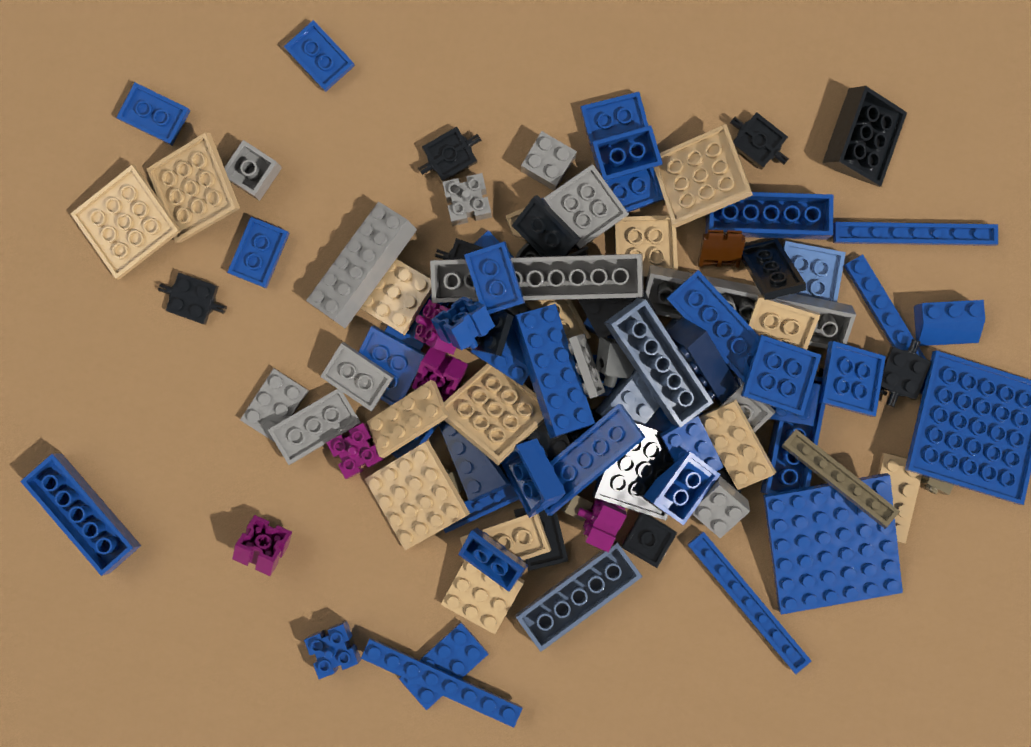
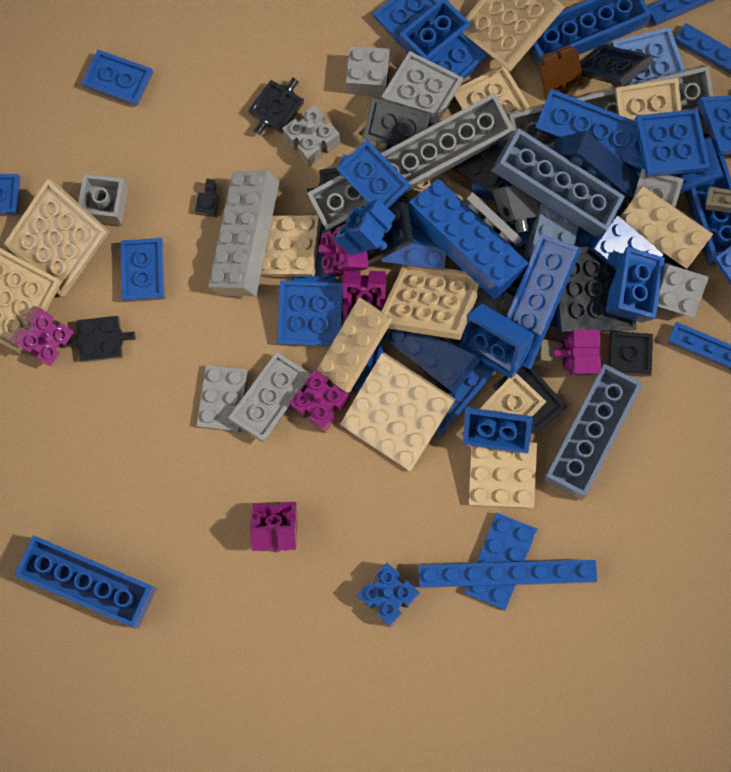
camera: 20 degrees left, 10 degrees down
(139, 274) = (41, 335): none -> magenta brick
(345, 216) = (207, 202): none -> black plate
(357, 376) = (288, 331): light grey plate -> none

